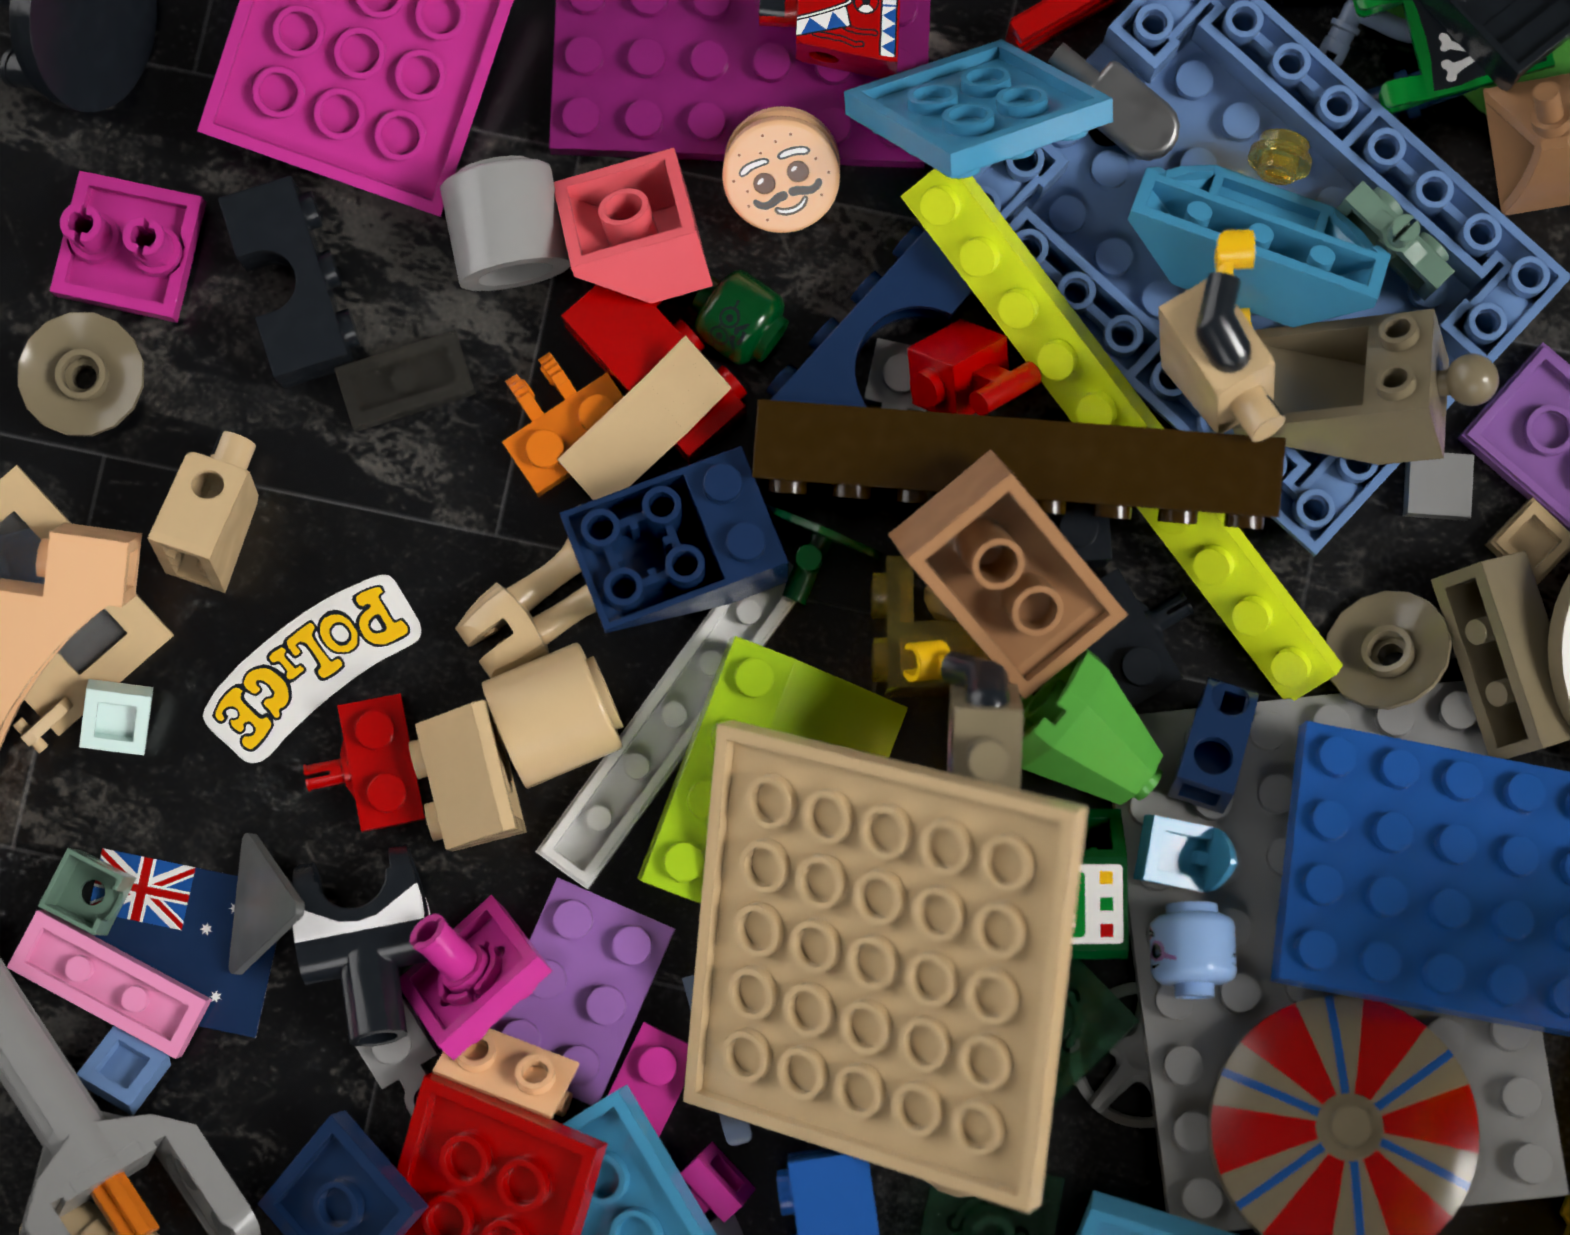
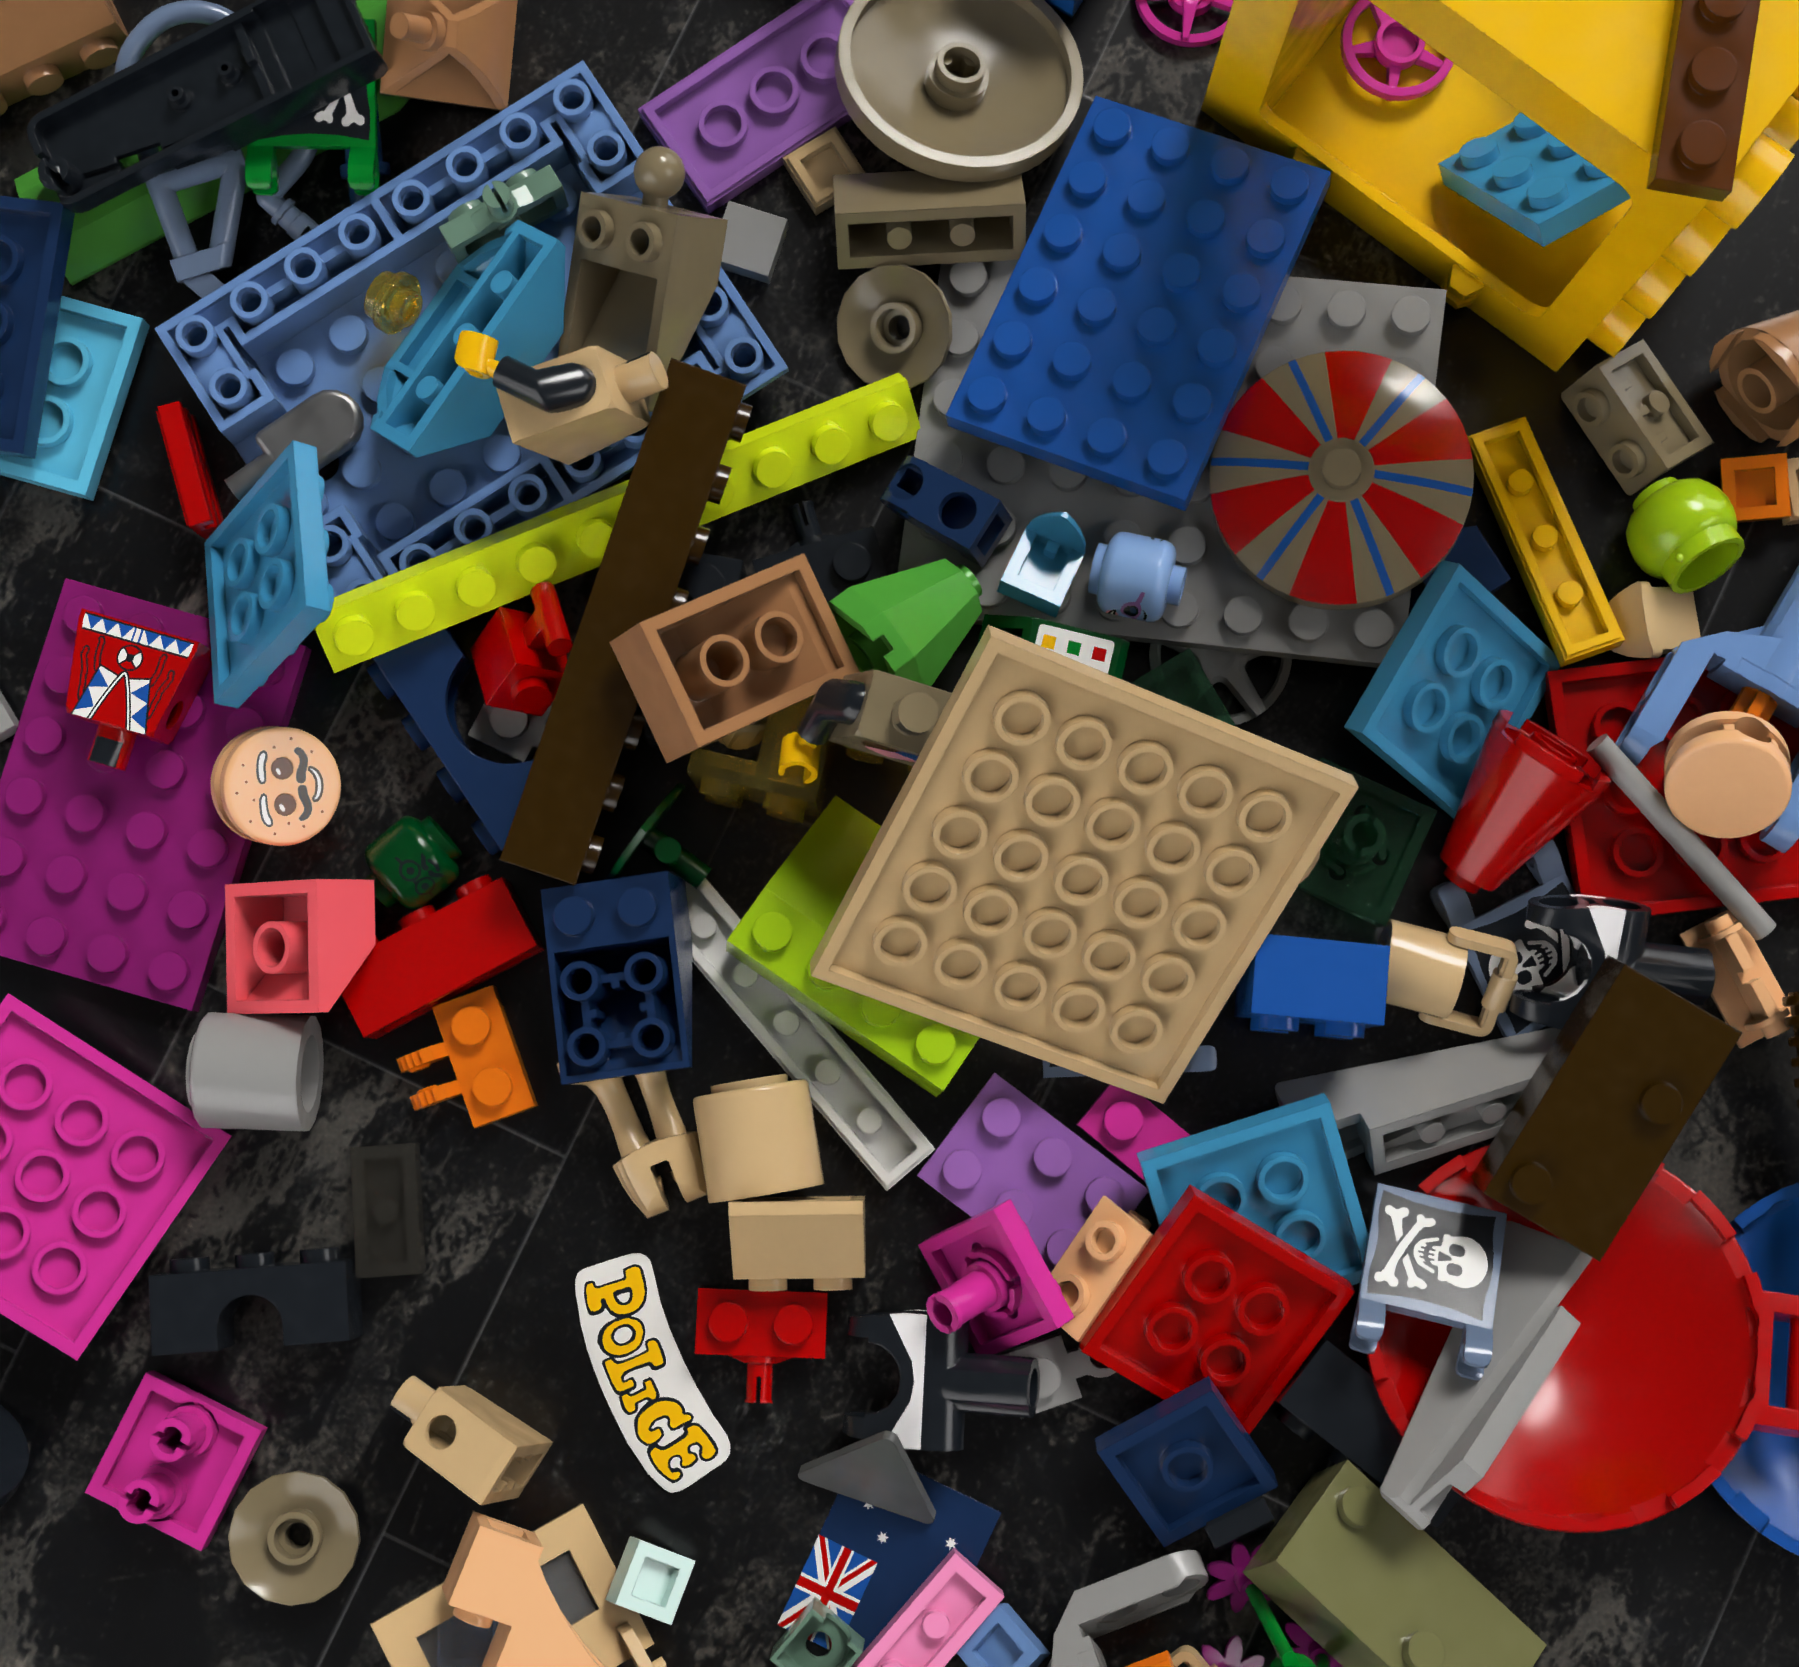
camera: 75 degrees left, 0 degrees up
(645, 422) = (492, 979): tan sticker -> none
(717, 1183) = (1248, 1089): dark pink tile -> none

